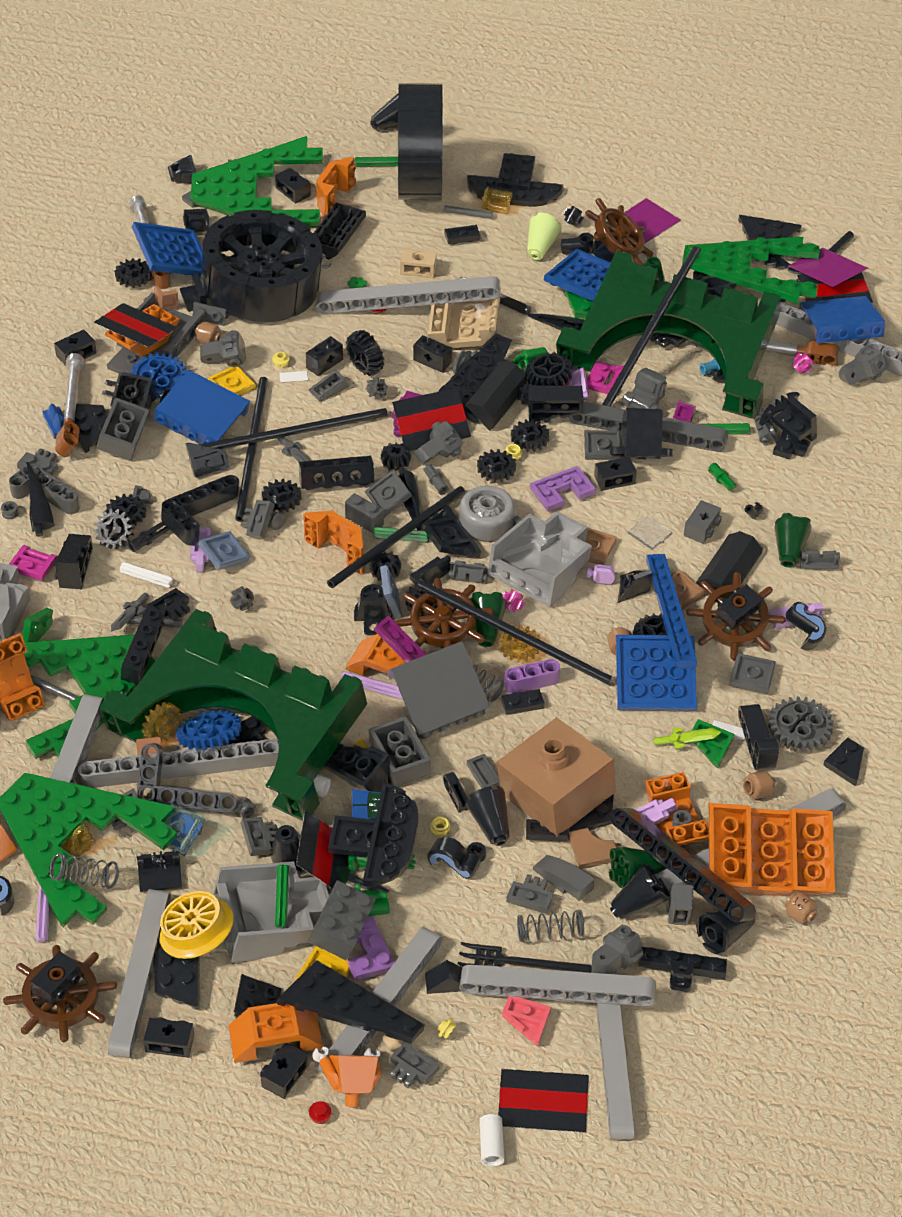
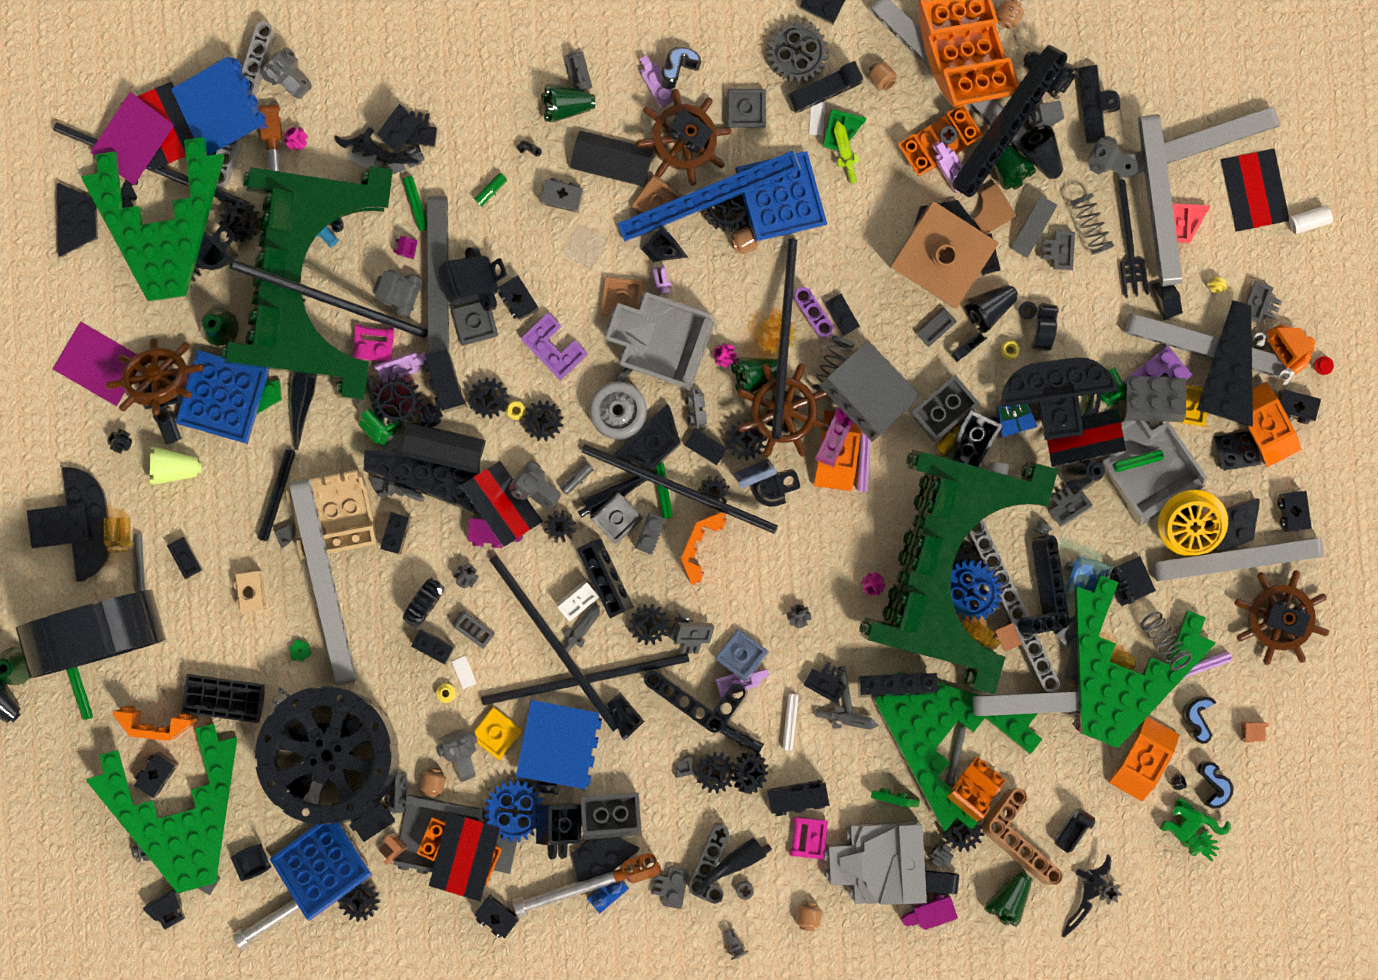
camera: 110 degrees left, 40 degrees up
(322, 447) = (577, 600): none -> white hinge

